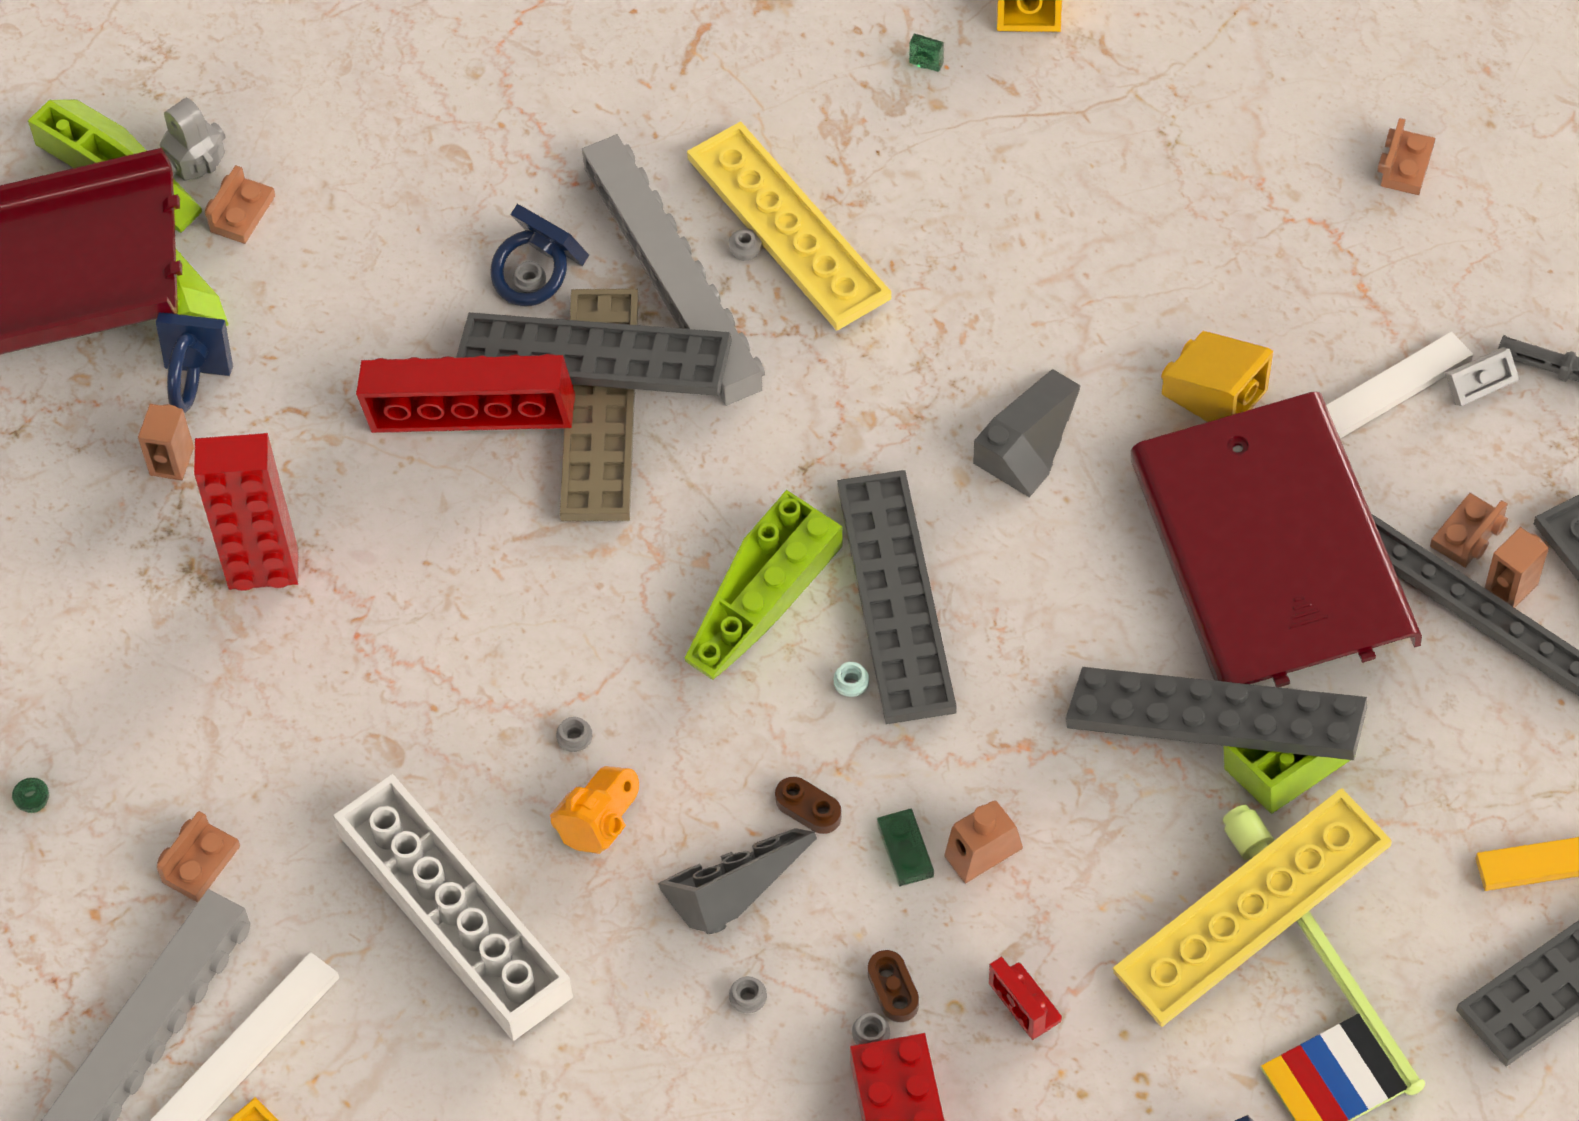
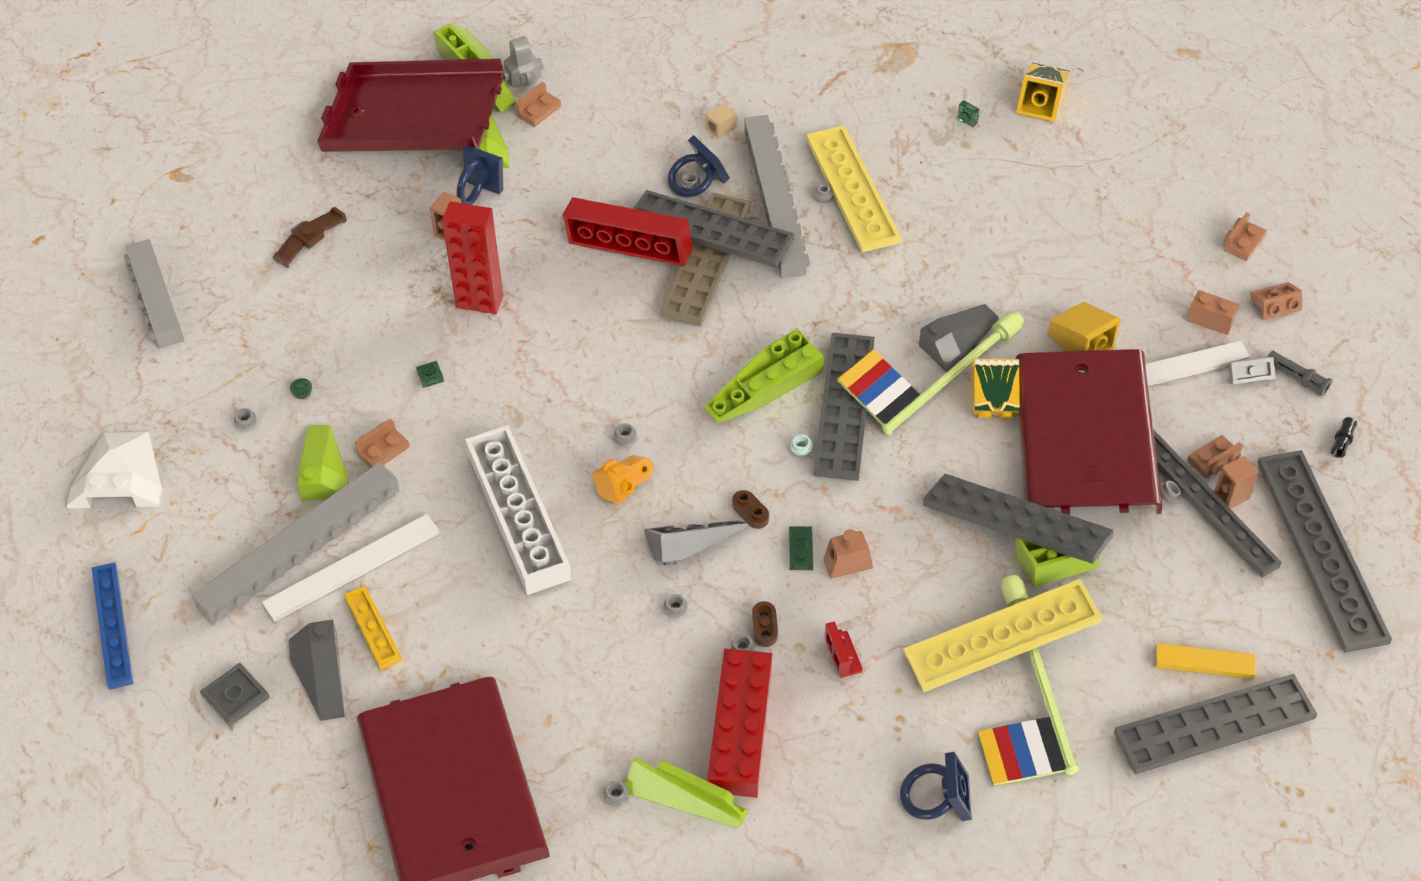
camera: 15 degrees right, 5 degrees down
(114, 918) = (320, 465): none -> lime wedge
(229, 715) = (429, 374): none -> clear green plate
(543, 160) = (720, 120): none -> tan brick
(963, 563) = (892, 398): none -> flag
(1115, 509) = (995, 388): none -> slope
(1398, 296) = (1213, 312): none -> nougat brick
(1423, 605) = (1170, 491): none -> light grey plate
(1485, 249) = (1278, 300): none -> nougat bracket

